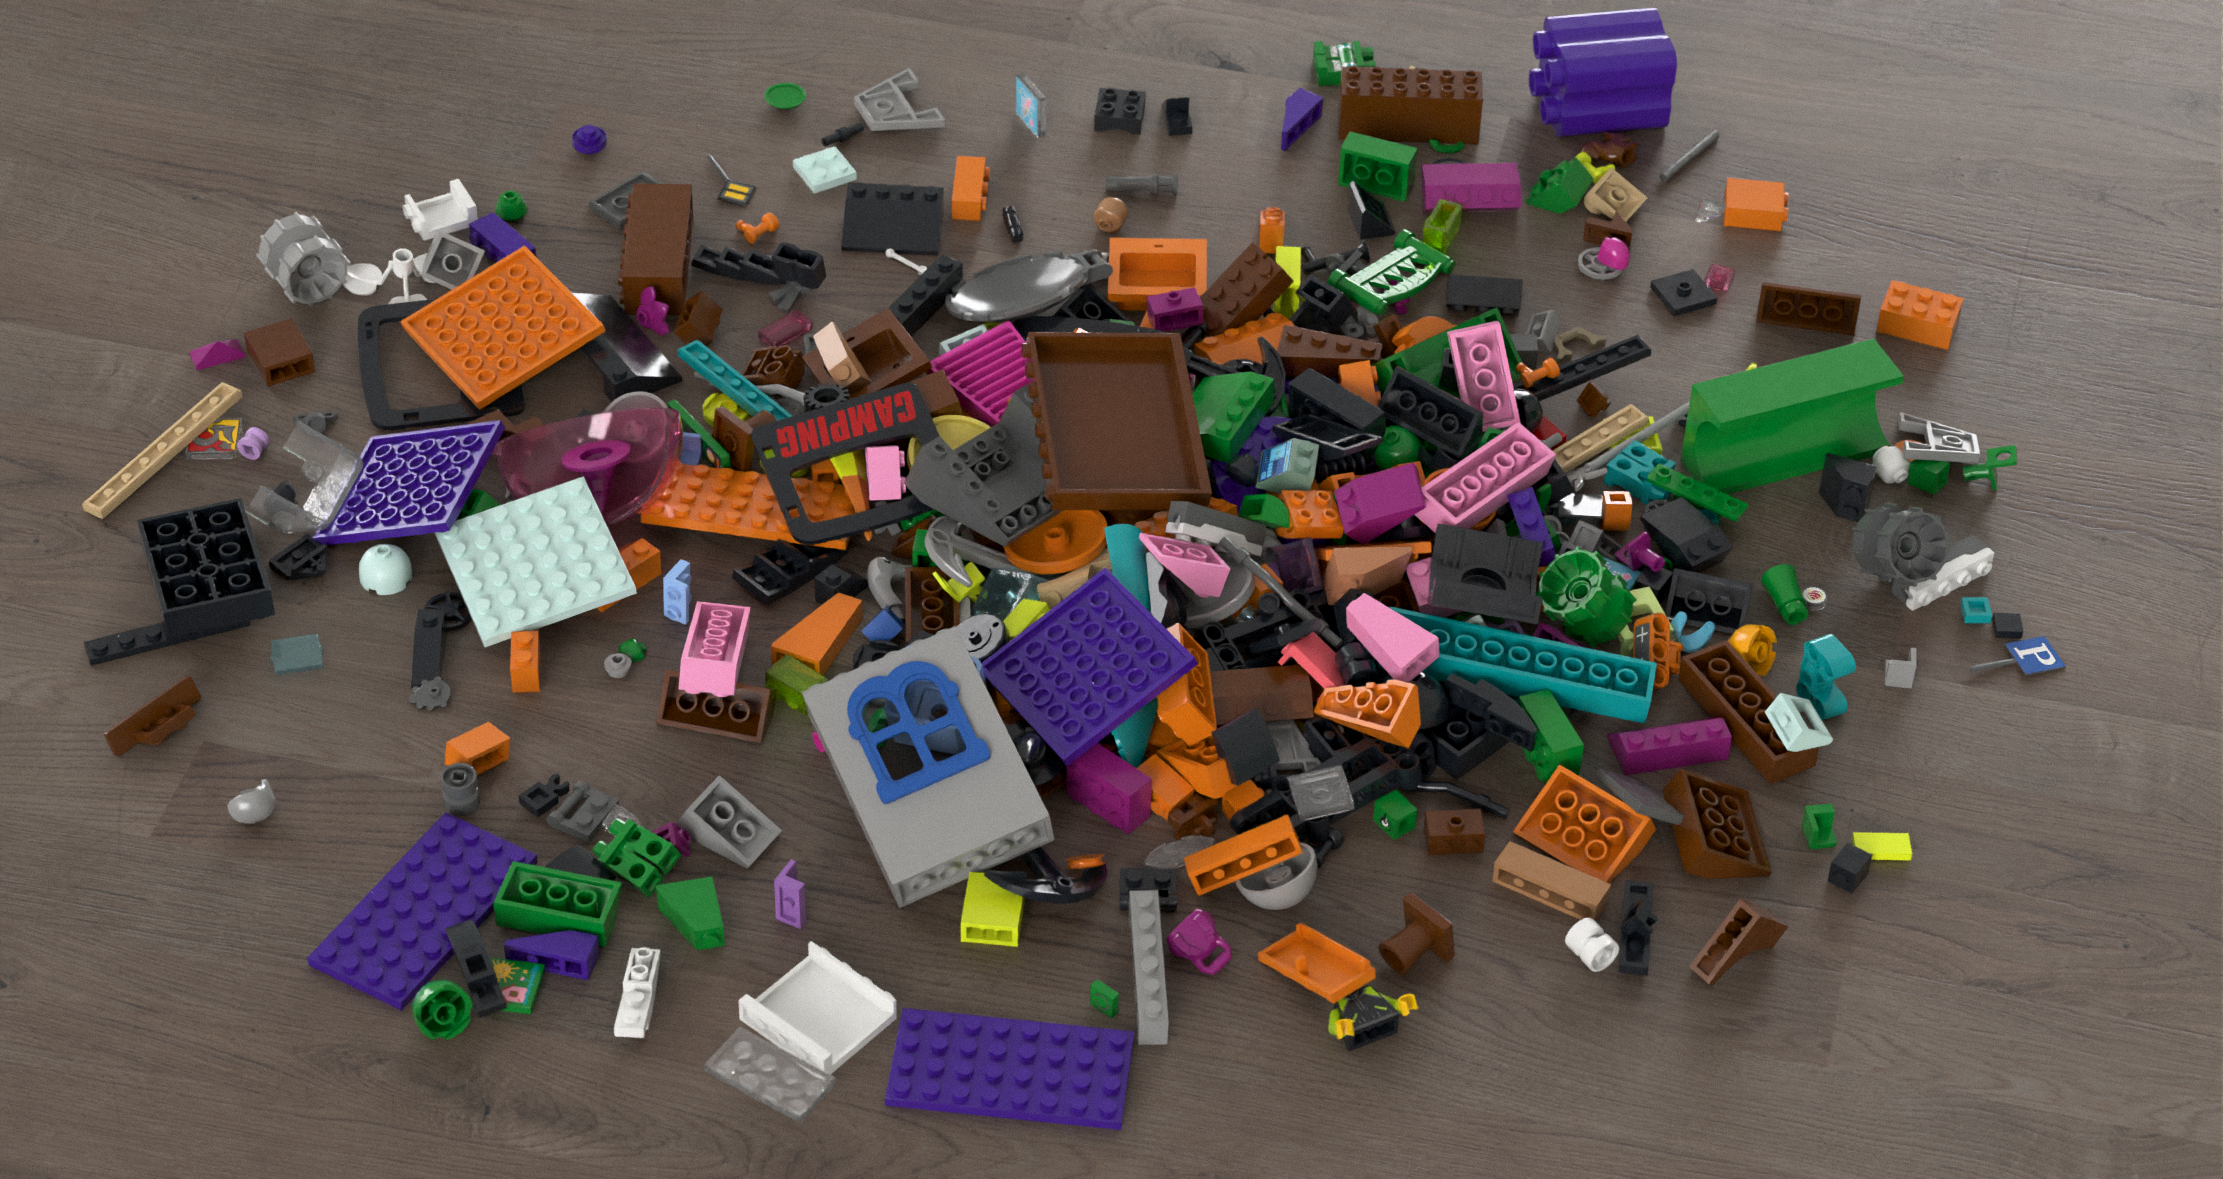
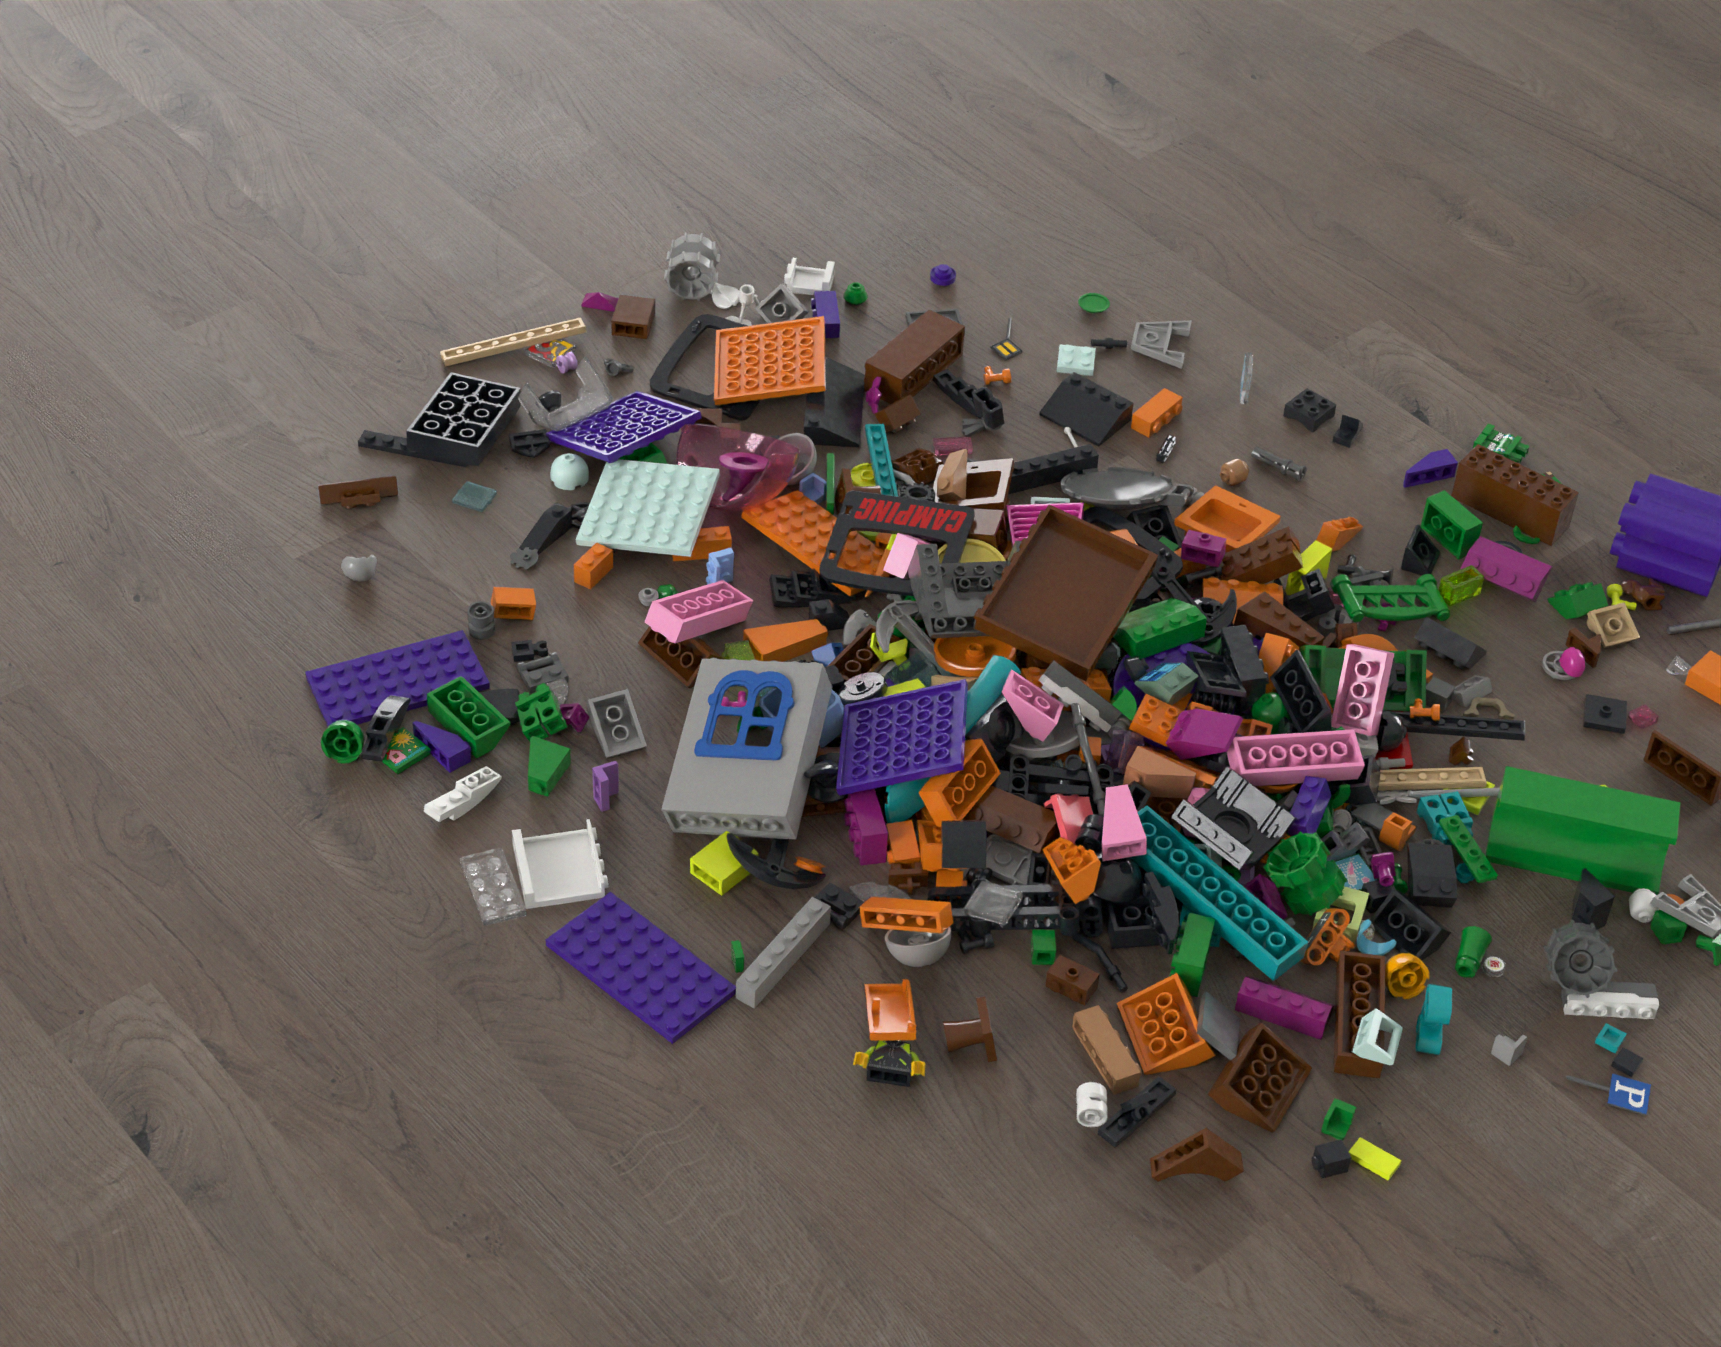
camera: 35 degrees right, 0 degrees up
(1196, 939) = (829, 952): magenta piece -> none

